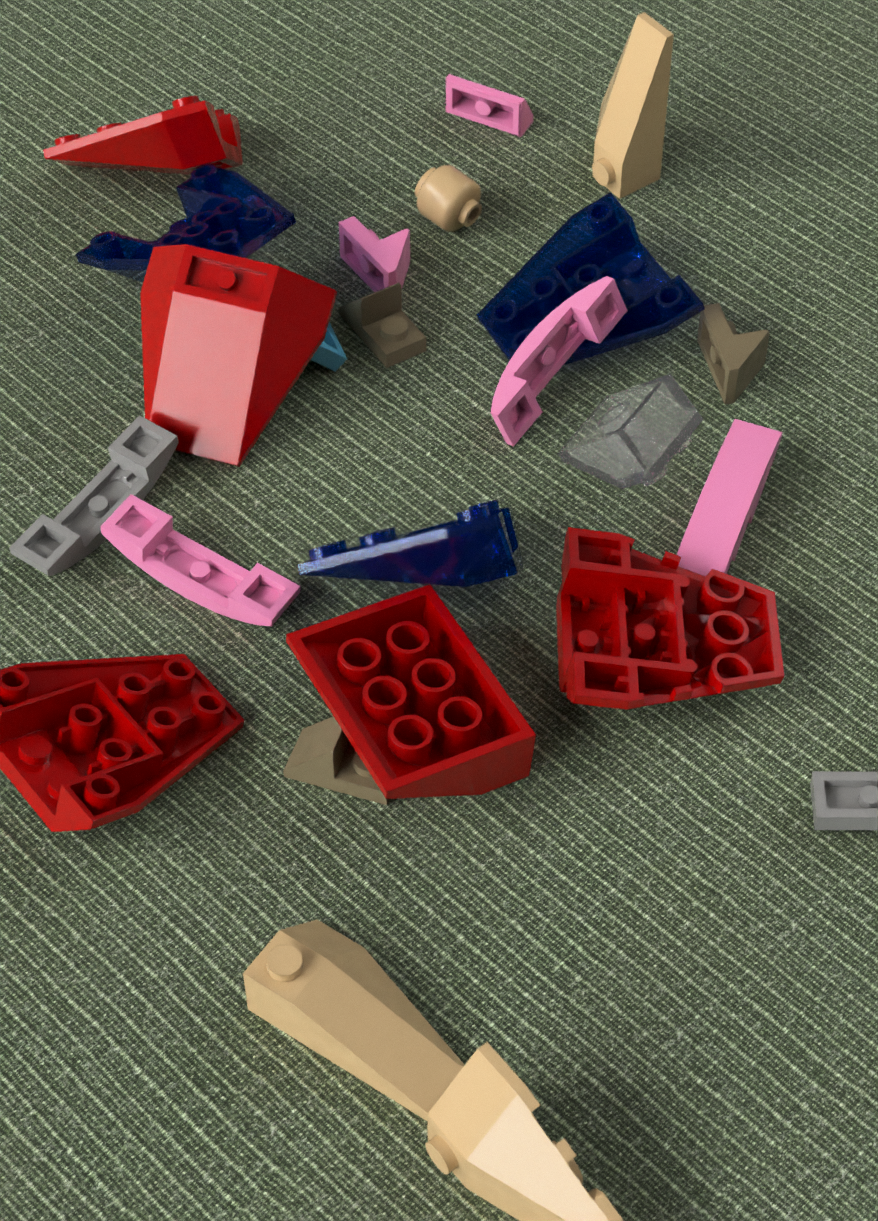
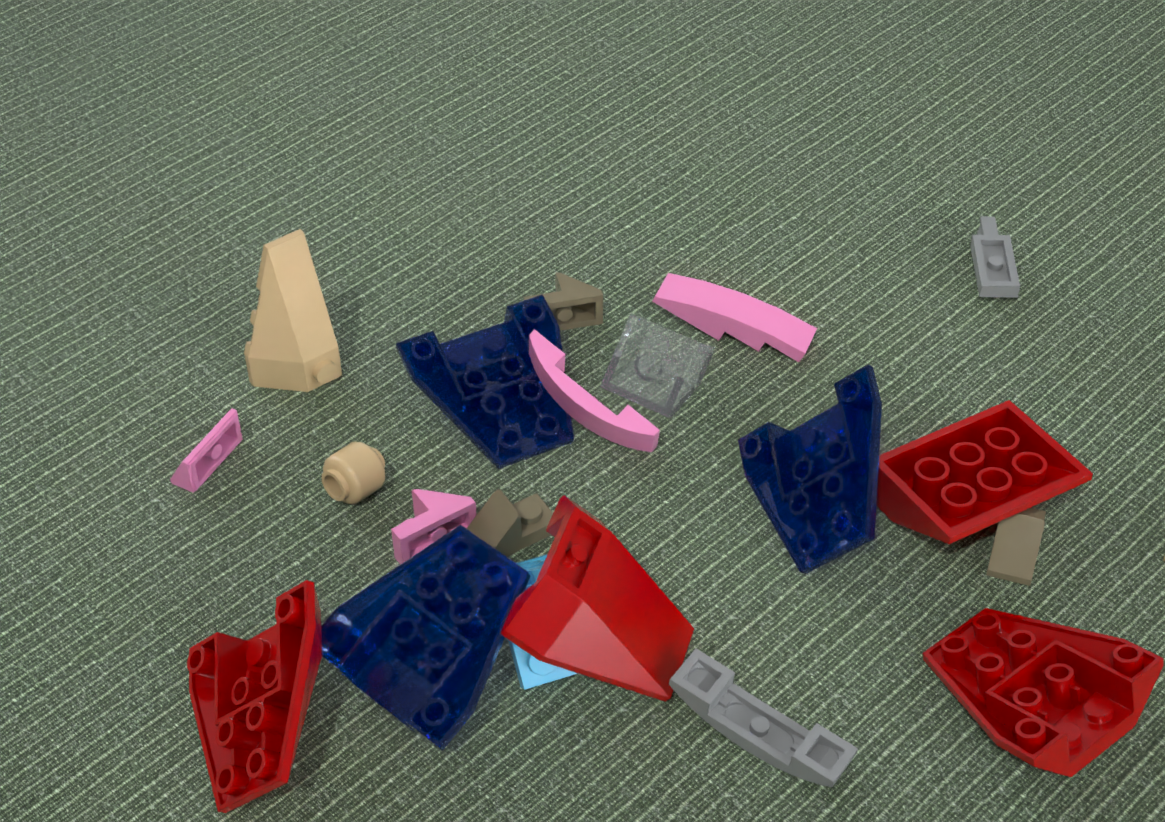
camera: 90 degrees left, 5 degrees down
(195, 571) = (836, 637): bright pink slope -> none
(655, 632) = (894, 337): red wedge -> none

